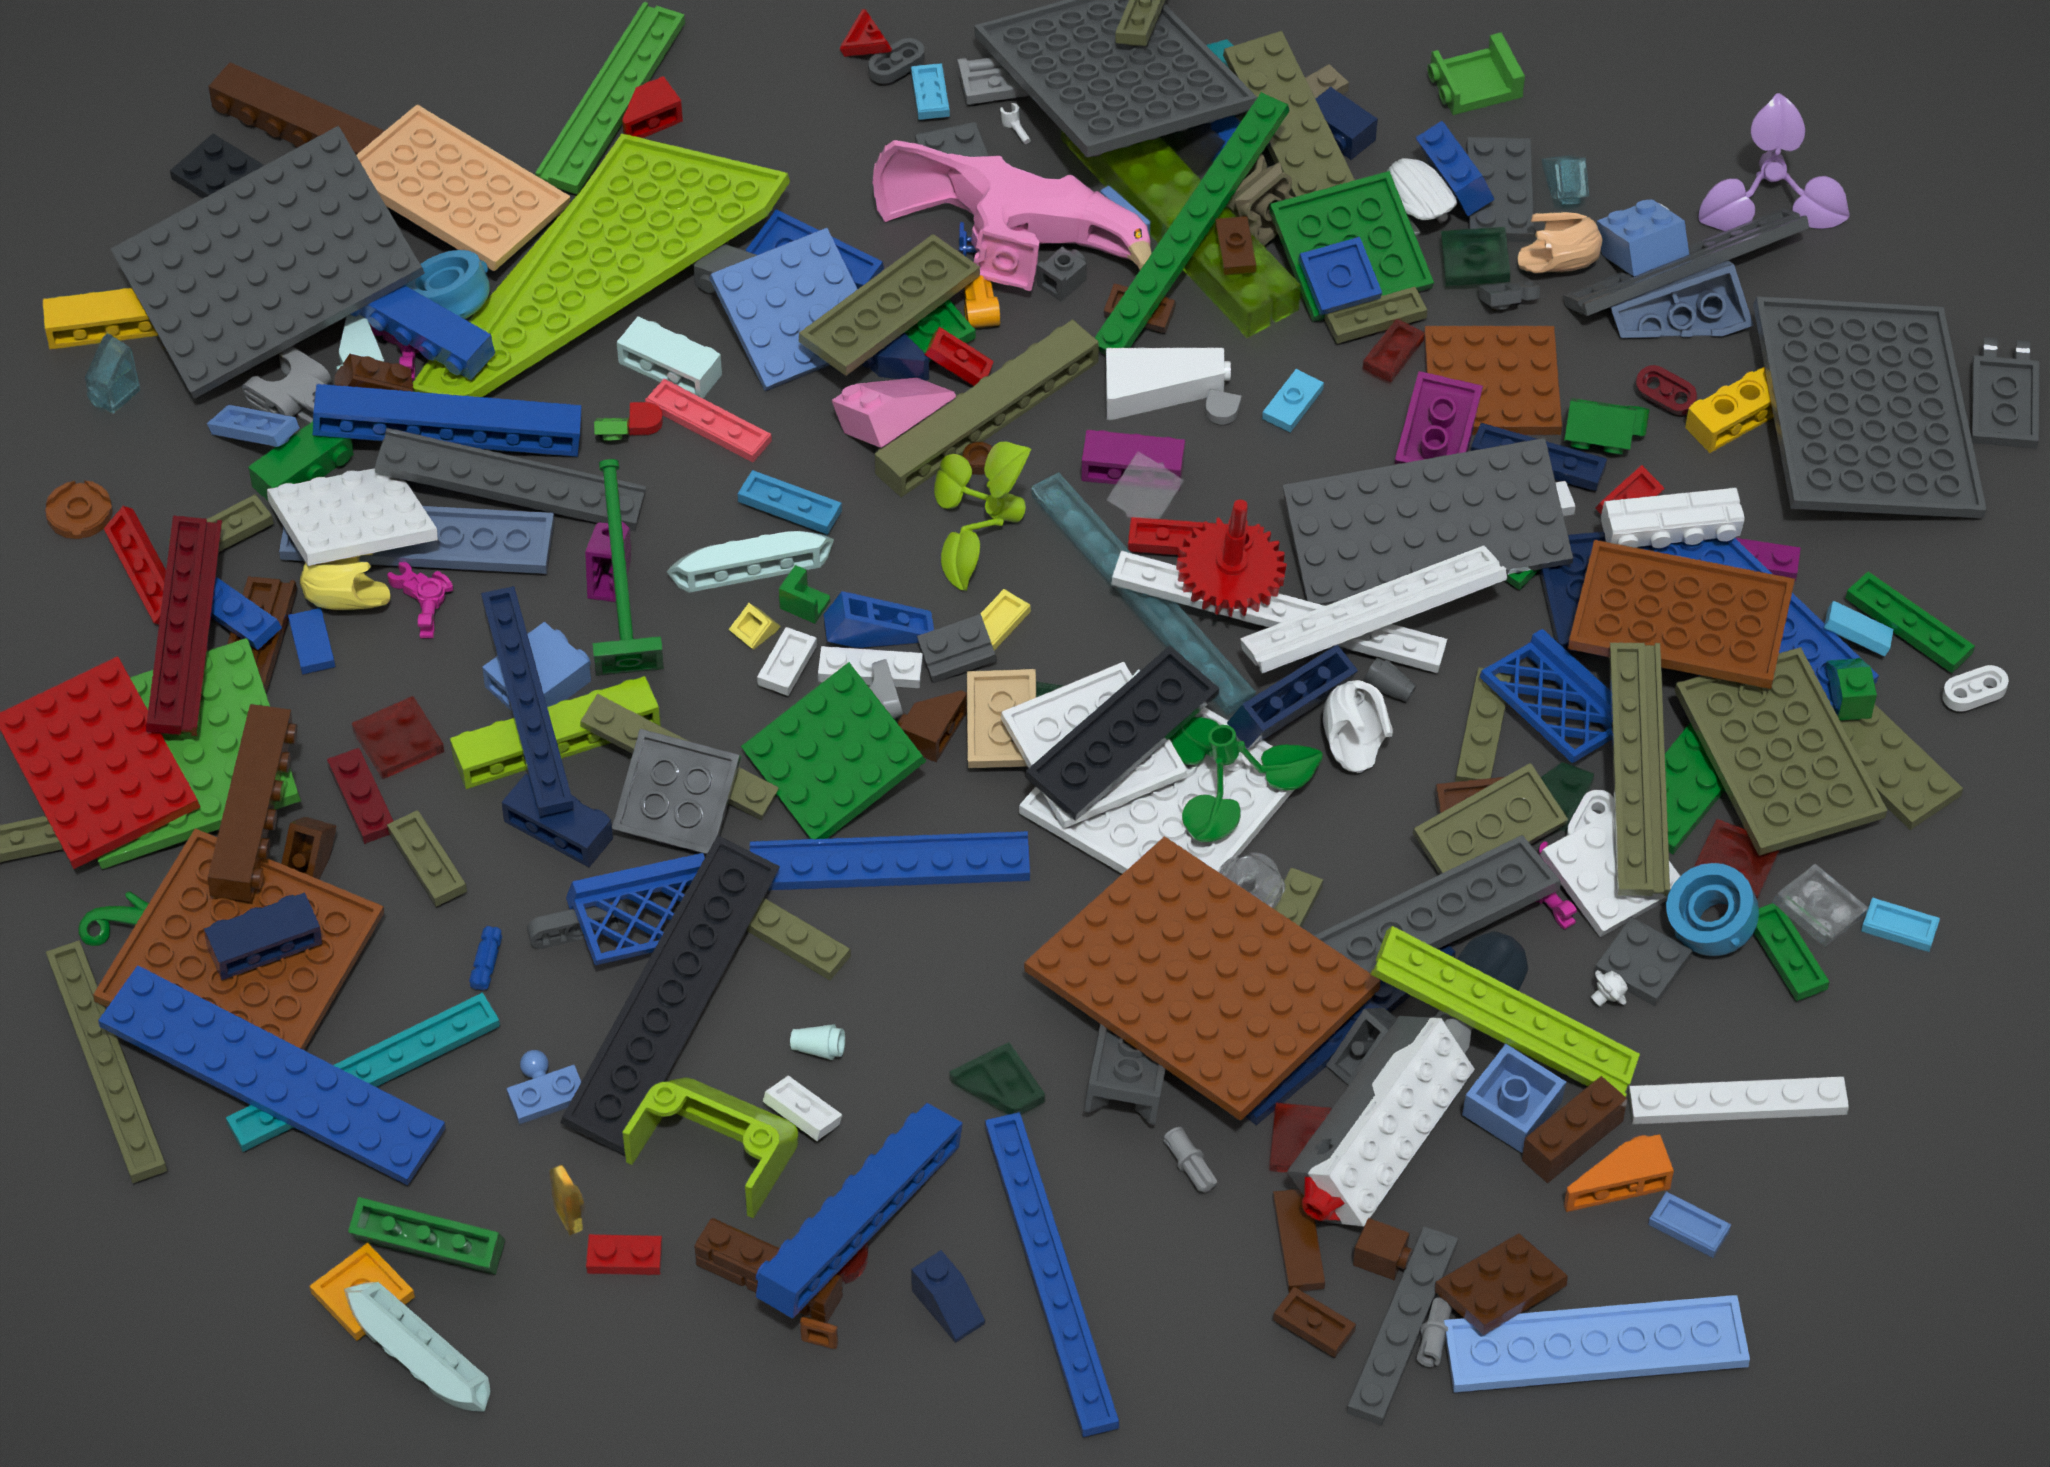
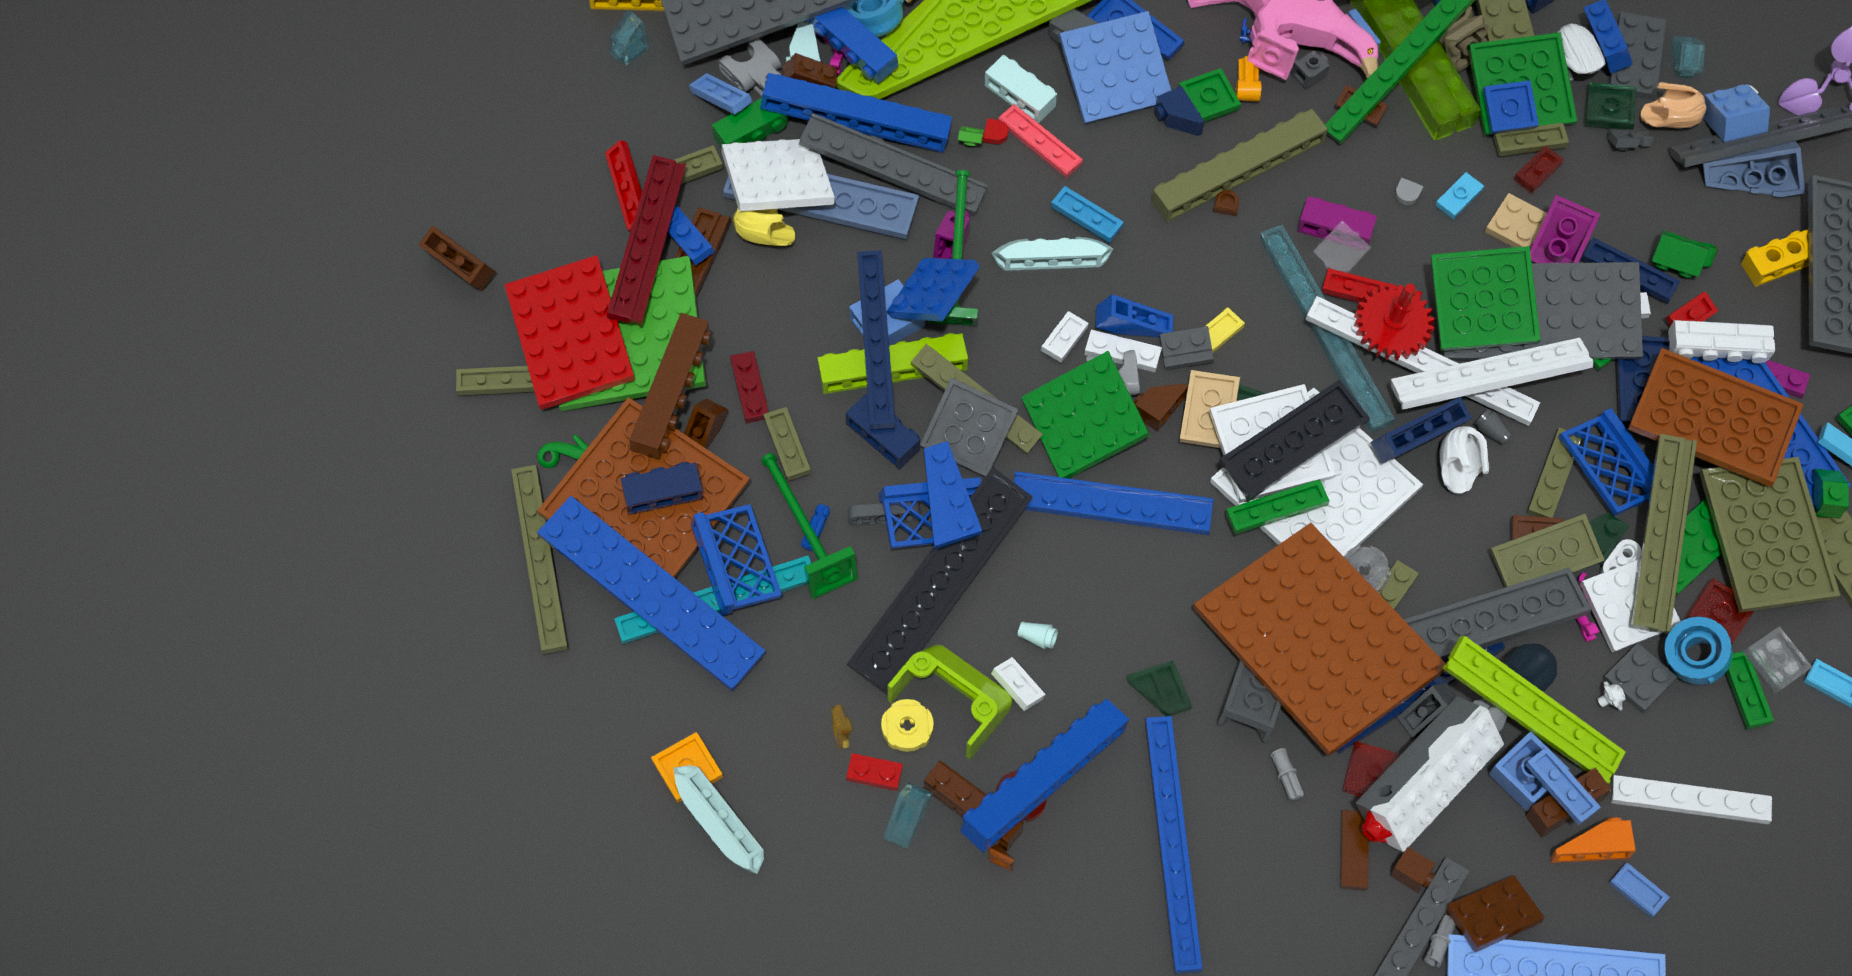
camera: 10 degrees right, 10 degrees up
(78, 509) = (590, 134): dark orange tile -> none
(311, 641) = (734, 263): blue tile -> none
(352, 1015) = (714, 558): none -> blue fence
(397, 737) = (782, 347): clear red plate -> none
(426, 1235) = (738, 735): green brick -> none
(427, 591) = (821, 239): dark pink piece -> none
(513, 1006) = (828, 571): none -> green tile
(544, 1092) = (839, 637): medium blue plate -> none
(594, 621) = (933, 289): none -> blue plate
(663, 1205) = (907, 740): none -> light yellow plate
(668, 892) = (949, 502): none -> blue wing
(679, 1298) = (907, 815): none -> clear light blue slope
(754, 626) = (1046, 305): light yellow slope -> none
(798, 940) = (1037, 552): olive plate -> none
(799, 598) = (1082, 289): green panel -> none
(887, 408) = (1169, 154): bright pink slope -> none
(889, 304) = (1183, 76): olive plate -> none
(946, 1296) = (1096, 848): dark blue slope -> none
(958, 357) = (1225, 123): red plate -> none
(1002, 469) = (1242, 221): lime plant -> none
(1115, 824) = (1277, 506): none -> green plate
(1161, 377) = (1367, 163): white slope -> none
(1215, 818) = (1349, 513): green plant -> none
(1235, 245) = (1439, 72): reddish brown plate -> none
(1314, 1322) = (1355, 917): reddish brown plate -> none
(1348, 516) = (1485, 298): none -> green plate
(1373, 422) = (1516, 222): none -> tan plate
(1513, 367) = (1617, 191): dark orange plate -> none
(1560, 1101) = (1563, 786): none -> medium blue plate
(1668, 391) = (1735, 233): dark red plate -> none

